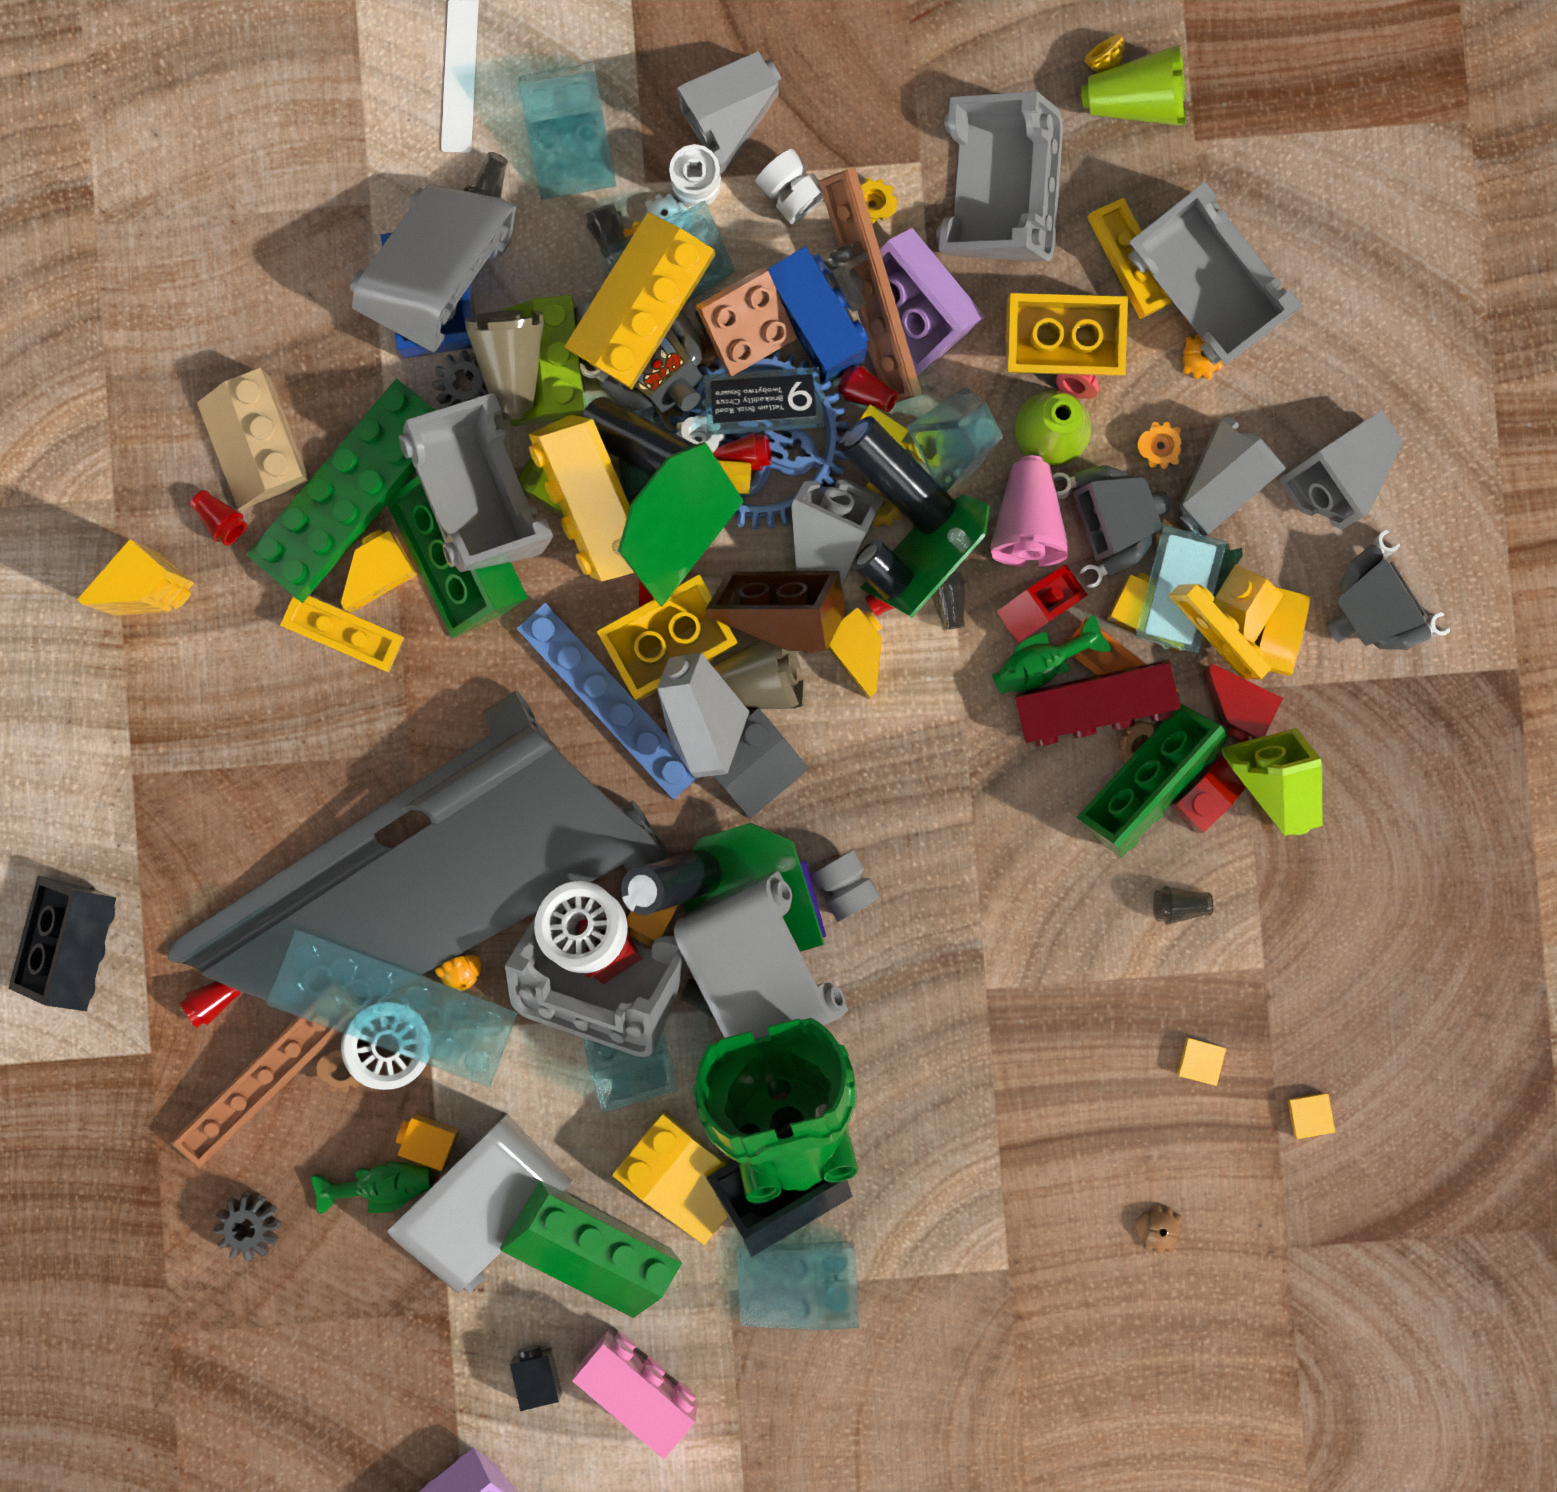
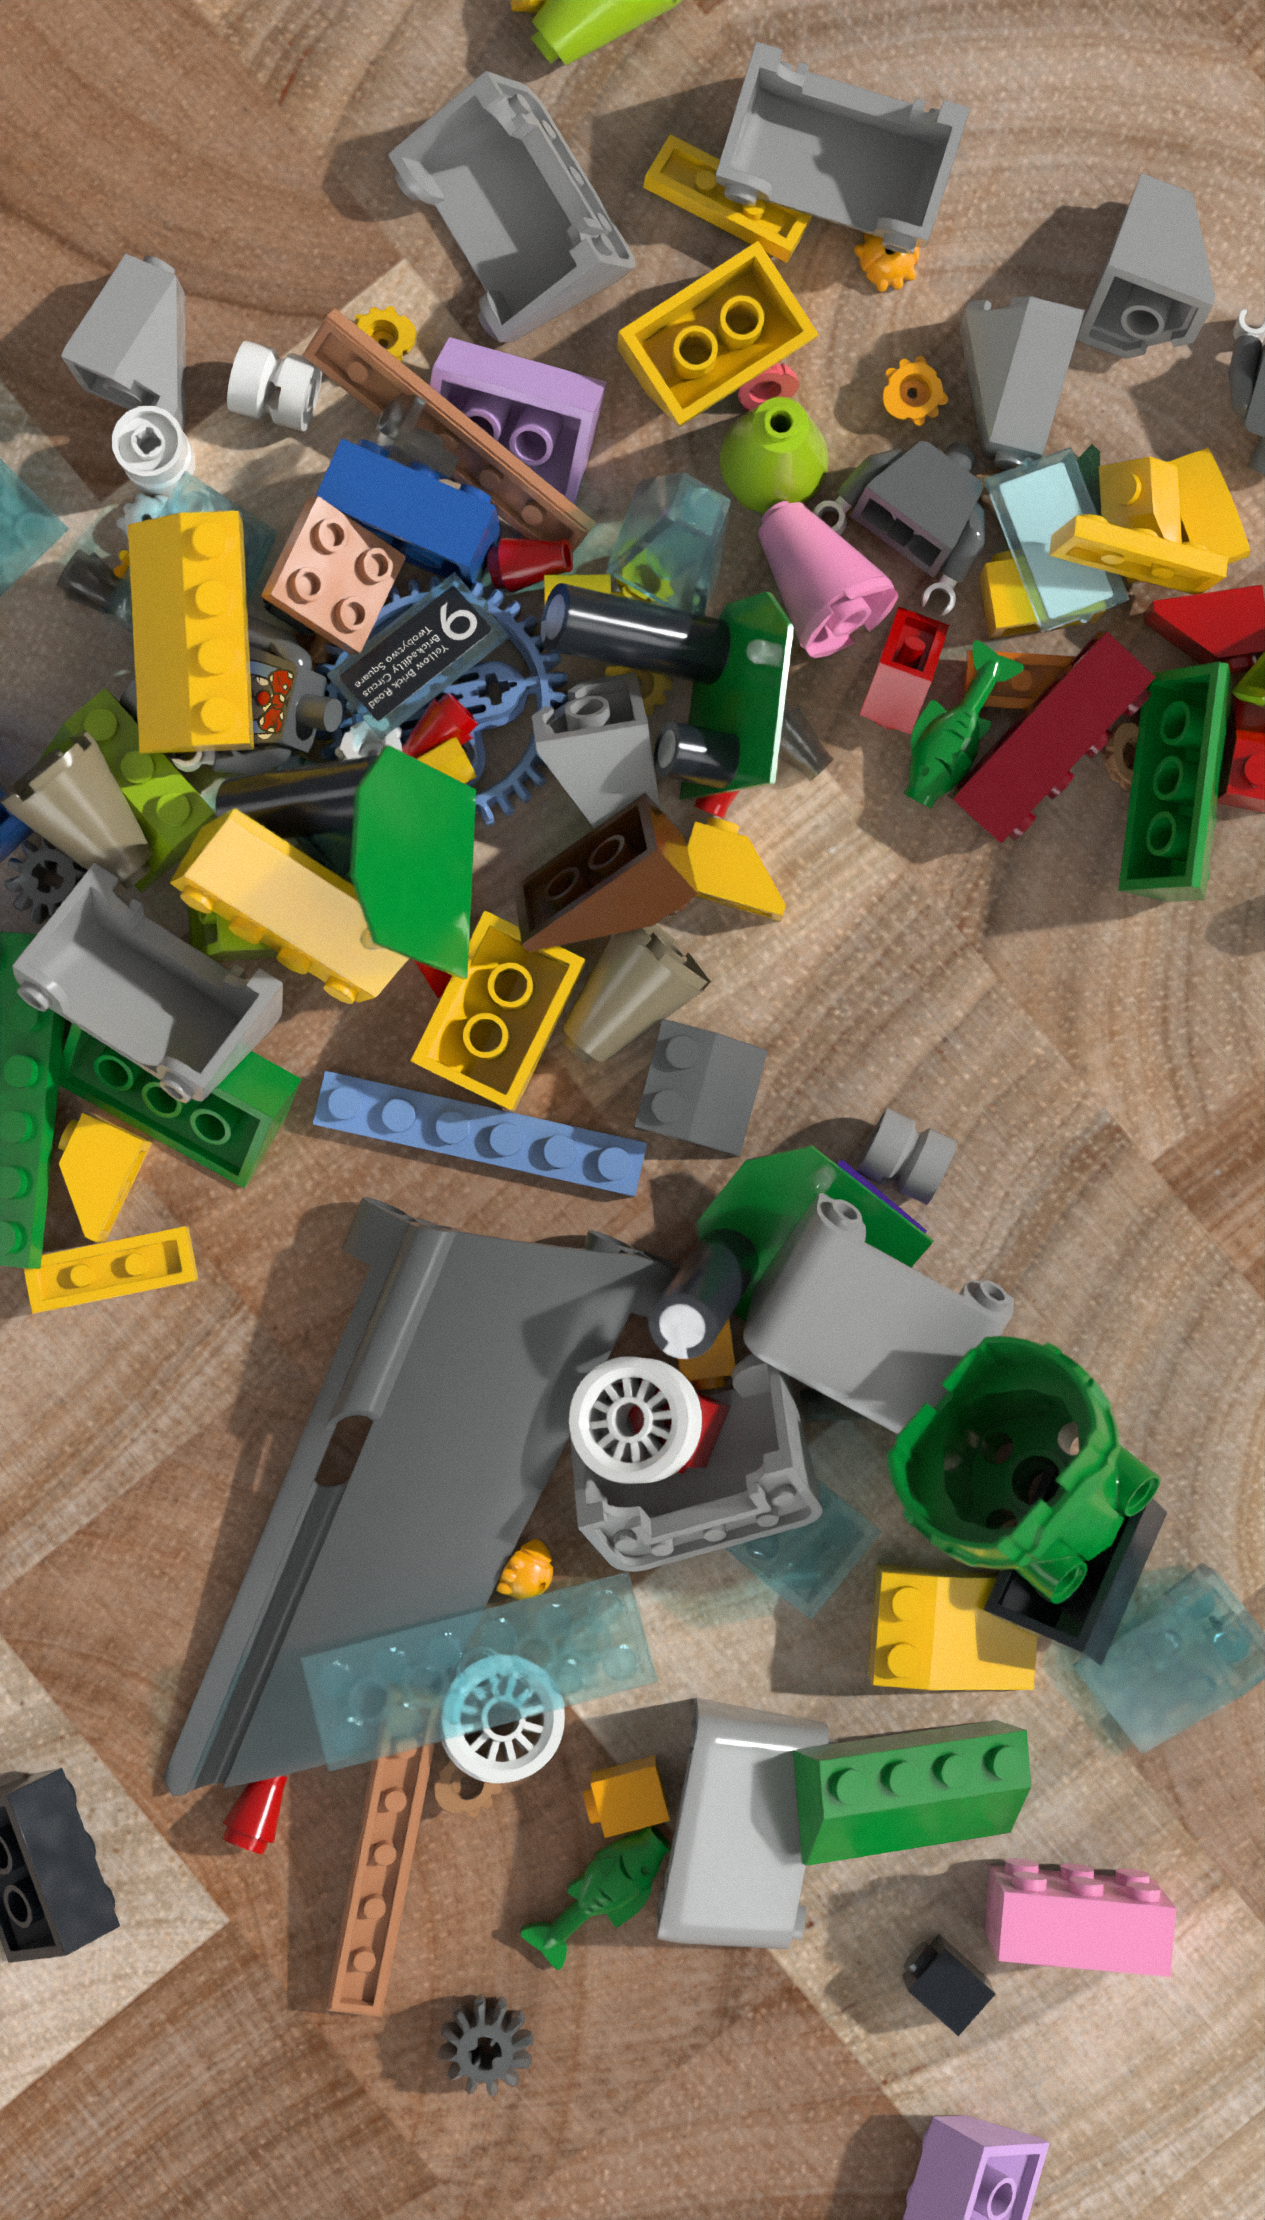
camera: 40 degrees left, 0 degrees up
(700, 715) = (602, 1073): light grey slope -> none

